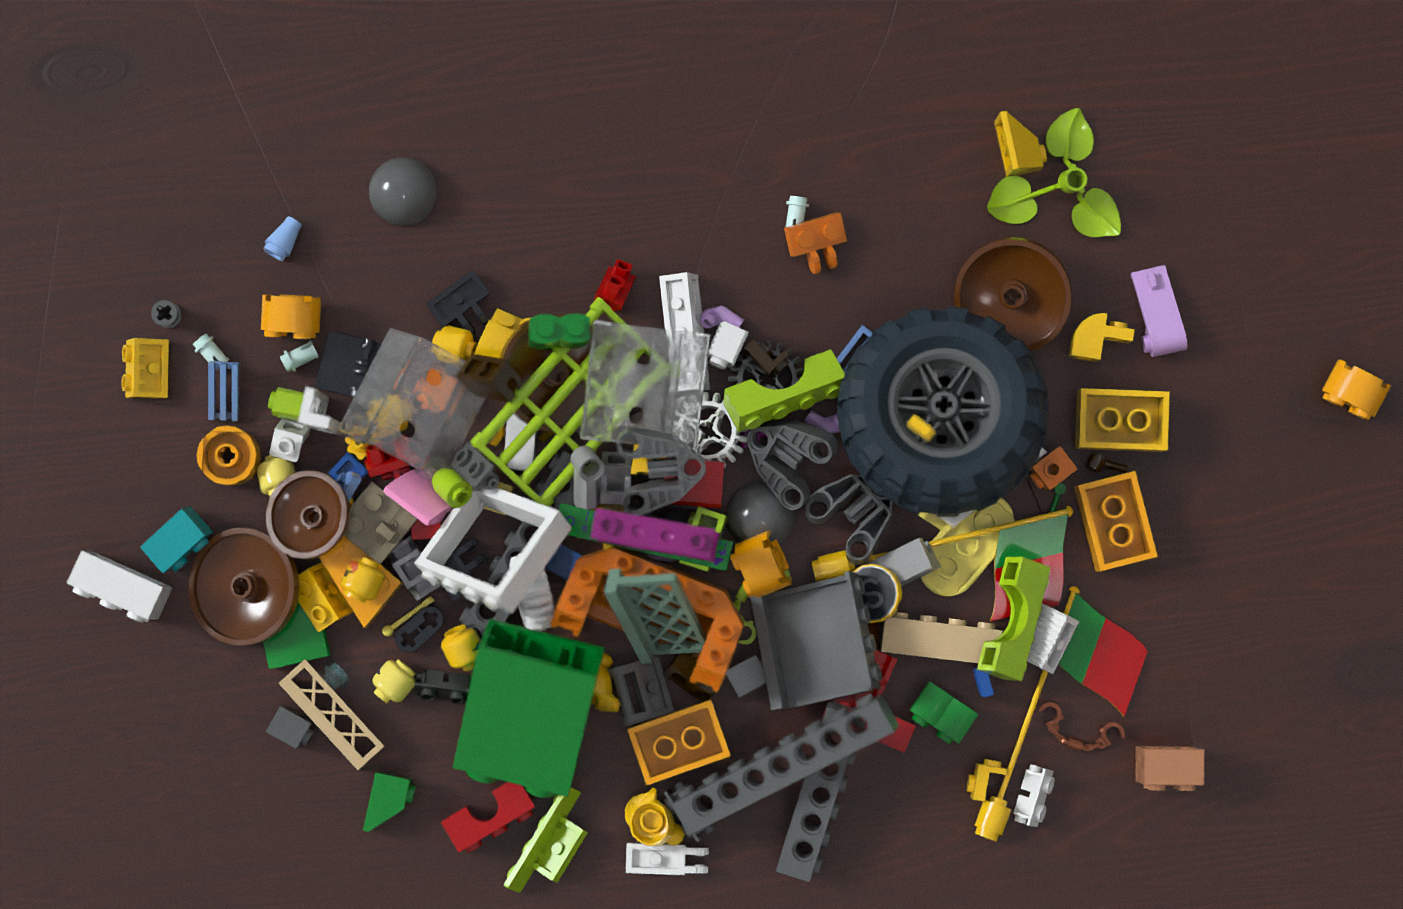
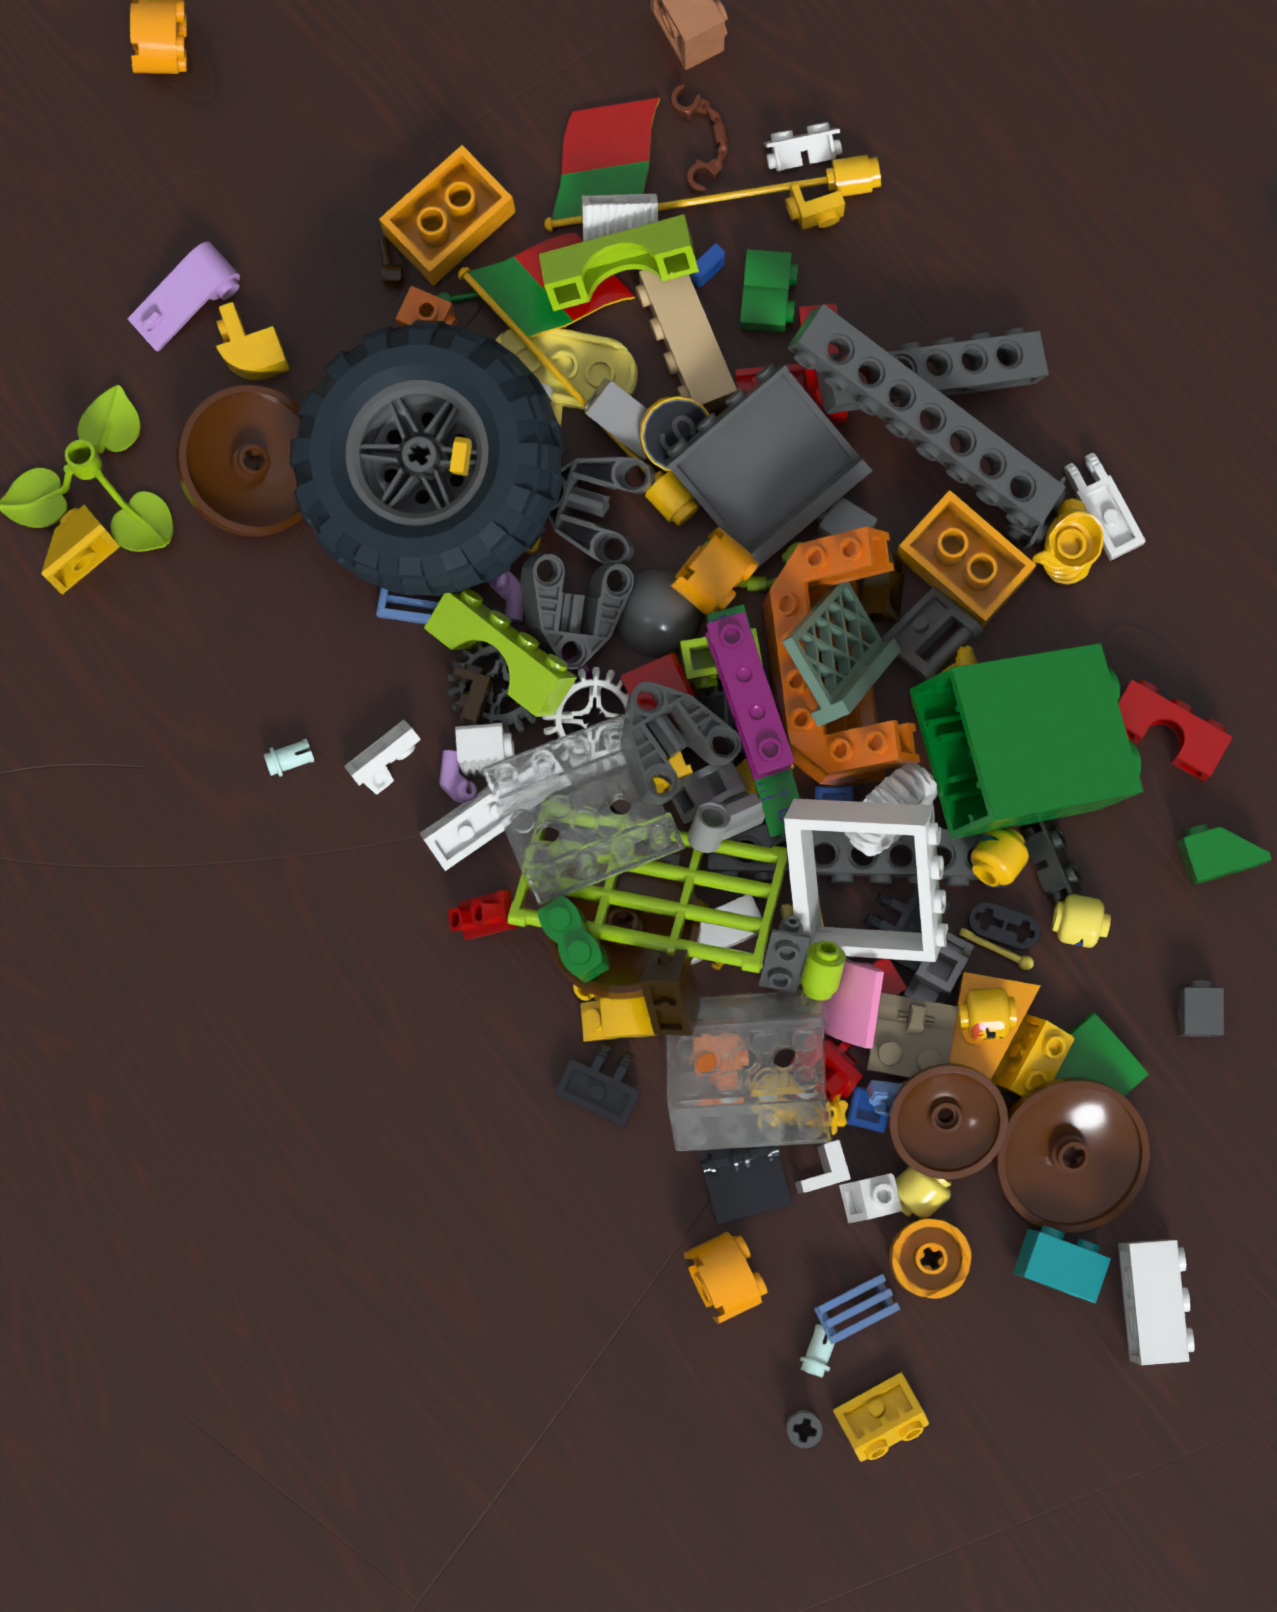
camera: 105 degrees left, 5 degrees down
(281, 241) = (640, 1339): light blue cone -> none
(286, 403) = (829, 1214): lime brick -> none
(298, 356) = (767, 1242): light aqua pin -> none
(327, 726) = (1174, 976): tan fence -> none
(335, 676) = (1113, 991): clear light blue plate -> none
(403, 191) = (506, 1229): dark grey piece -> none
(456, 341) = (649, 1064): yellow head -> none
(550, 846) = (1166, 638): lime bracket -> none
(760, 266) = (370, 764): none -> white hinge
(816, 235) = (301, 720): orange hinge -> none
(1122, 420) = (329, 267): yellow brick -> none

